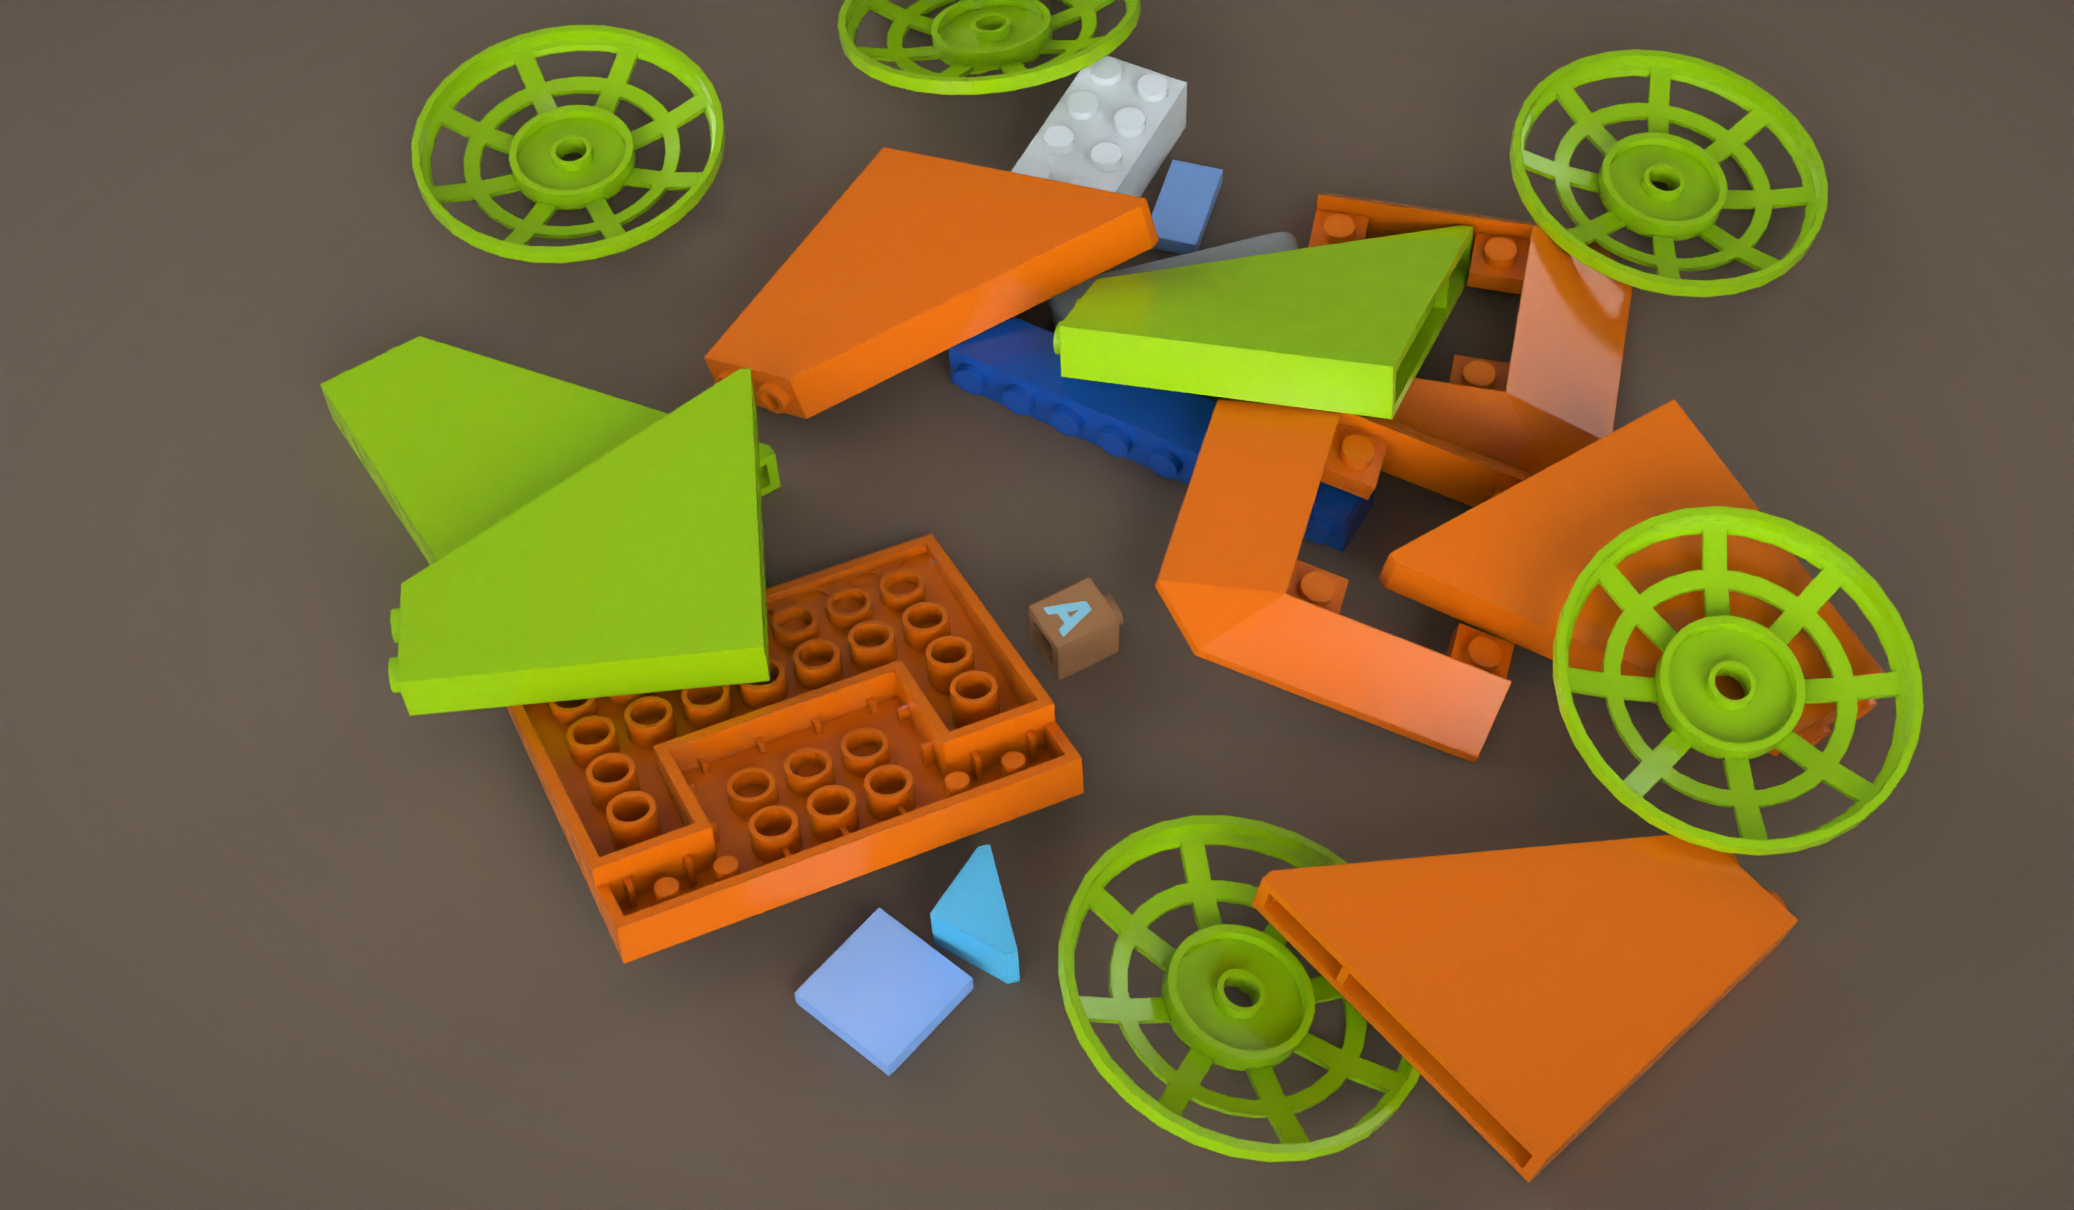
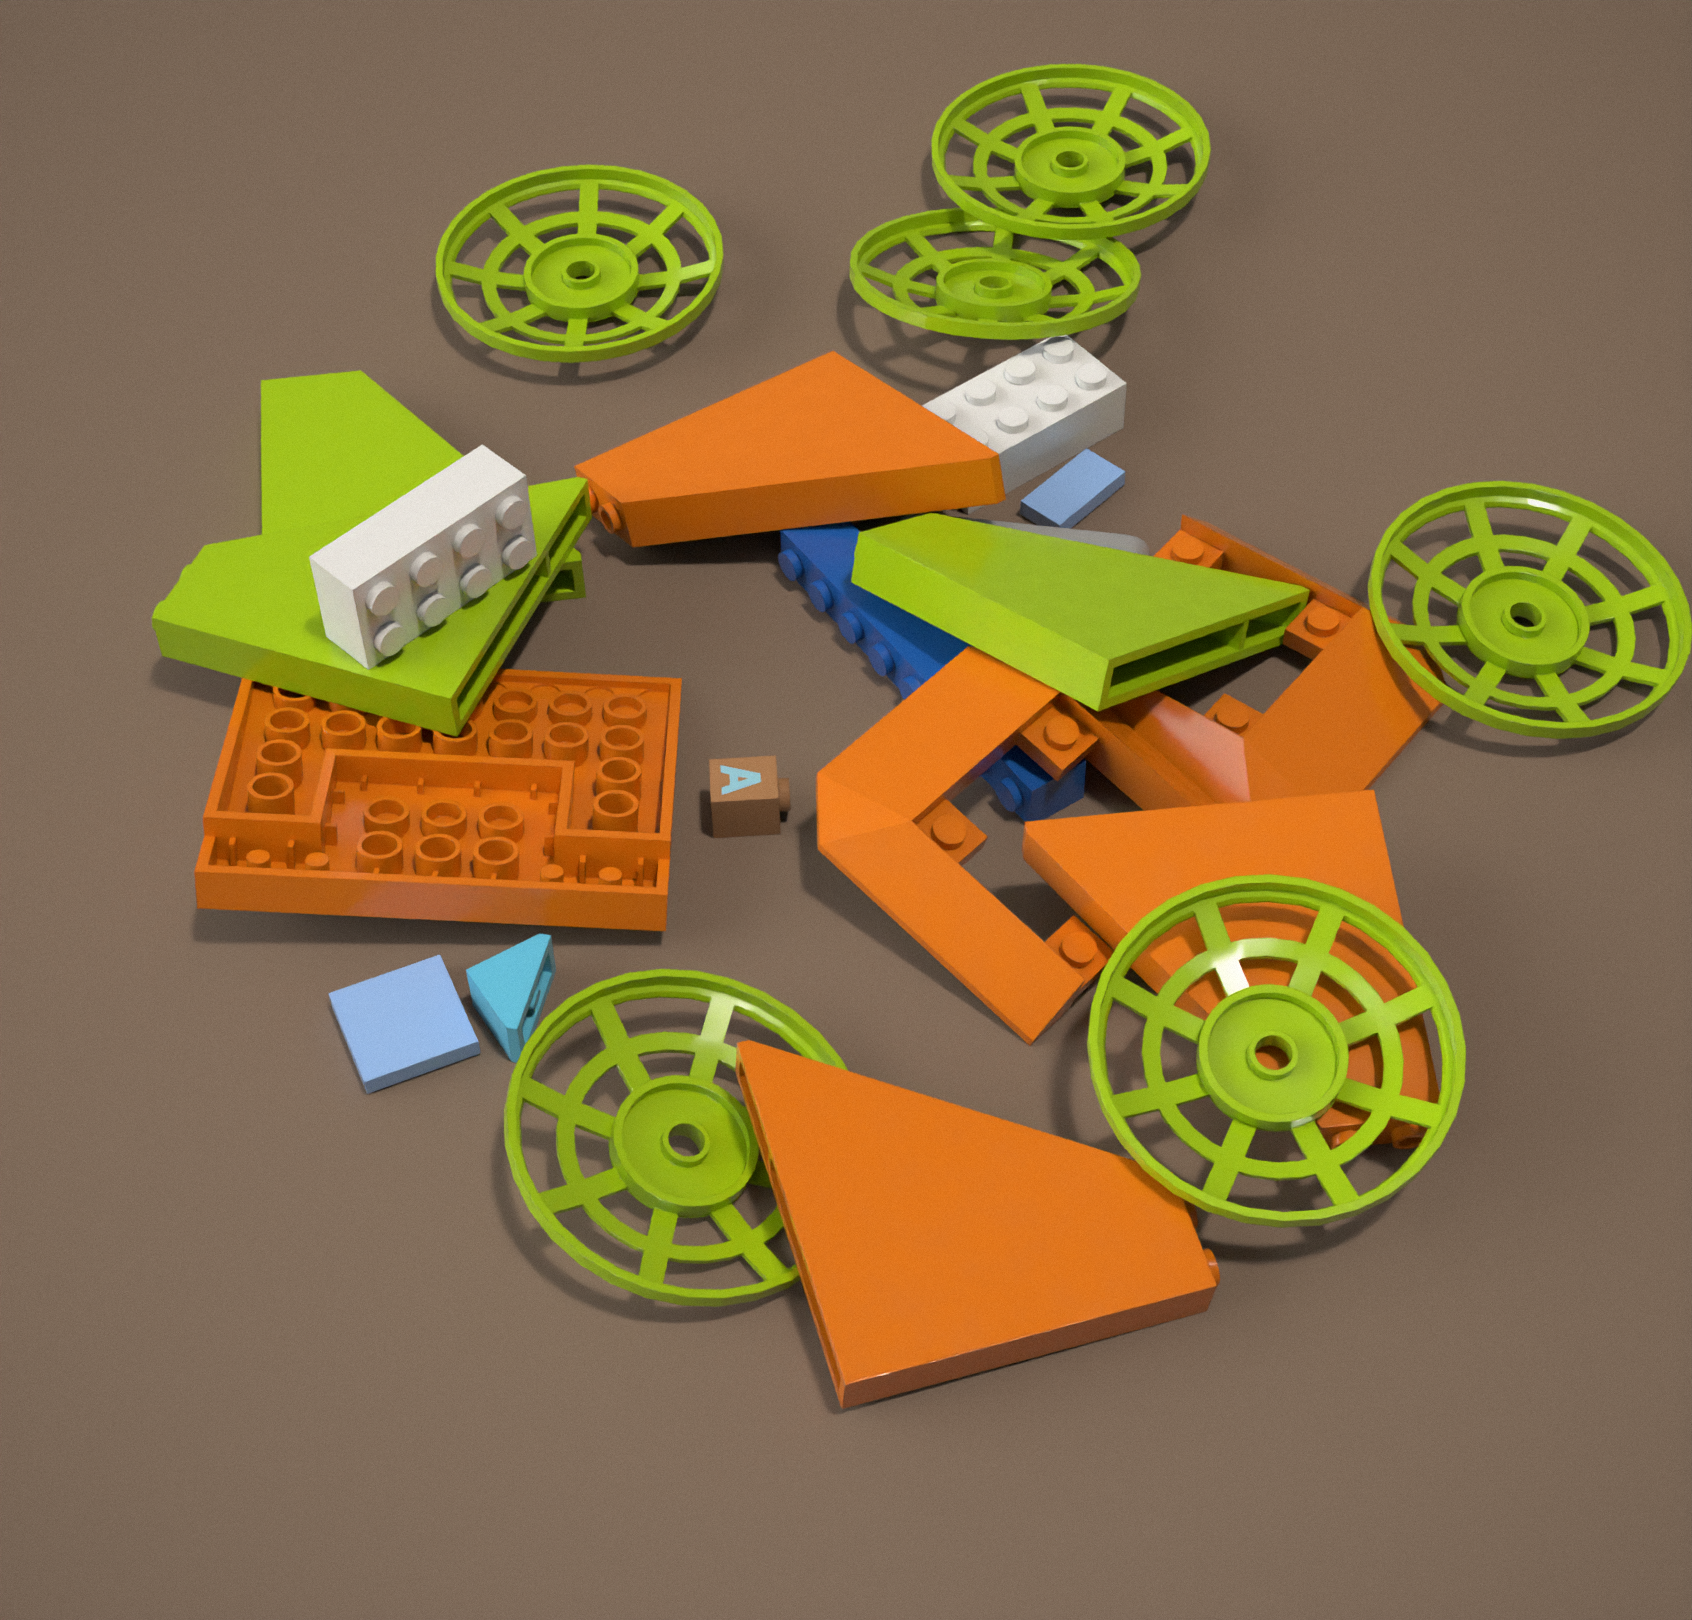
camera: 25 degrees right, 5 degrees down
(666, 512) = (424, 556): none -> white brick

